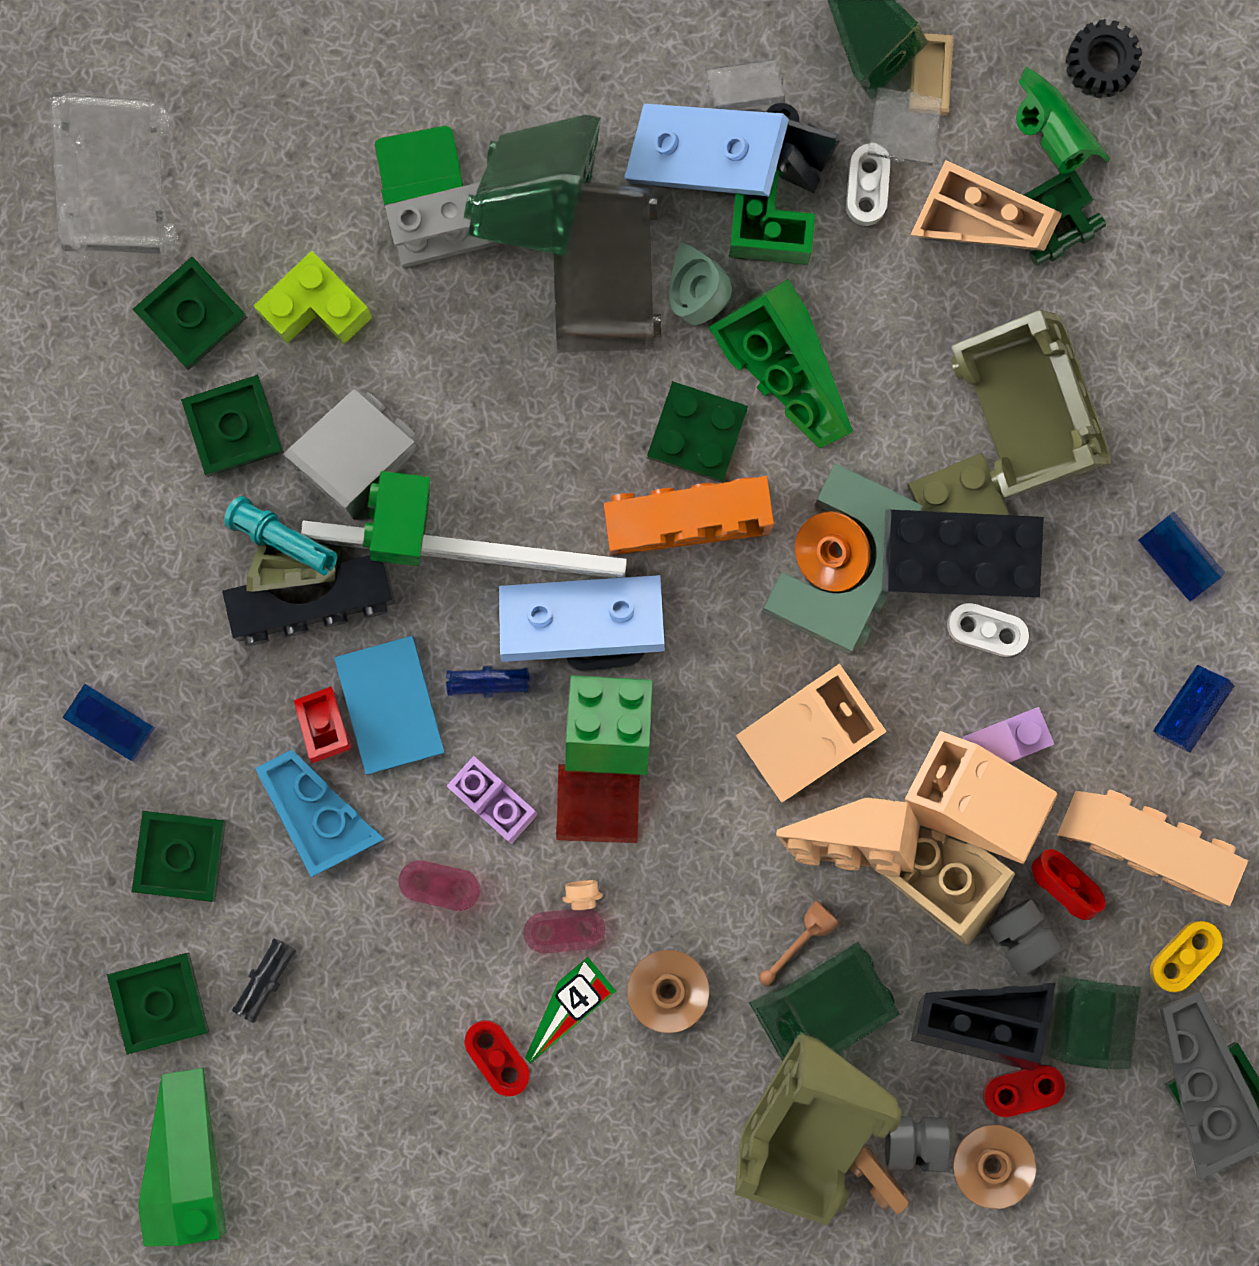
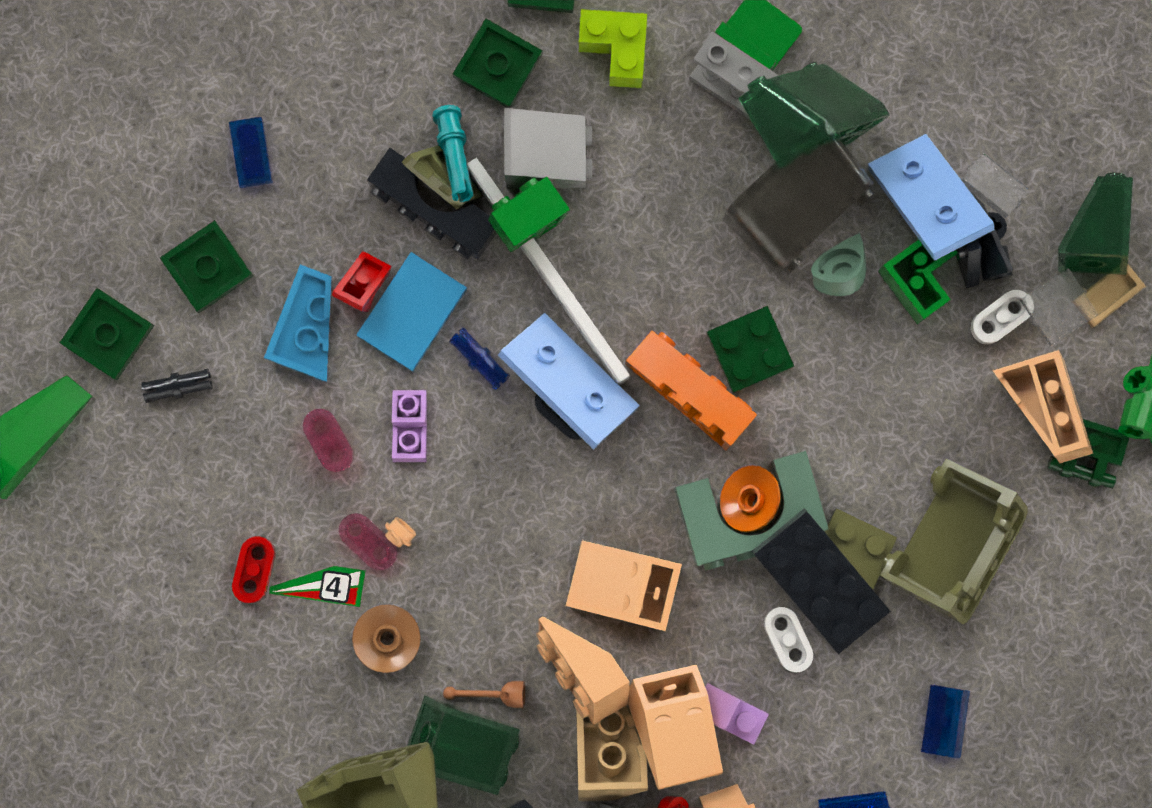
camera: 50 degrees right, 0 degrees up
(597, 806) = (464, 492): clear red hinge -> none
(608, 725) = (517, 455): brick -> none
(782, 350) = (848, 356): green wedge -> none

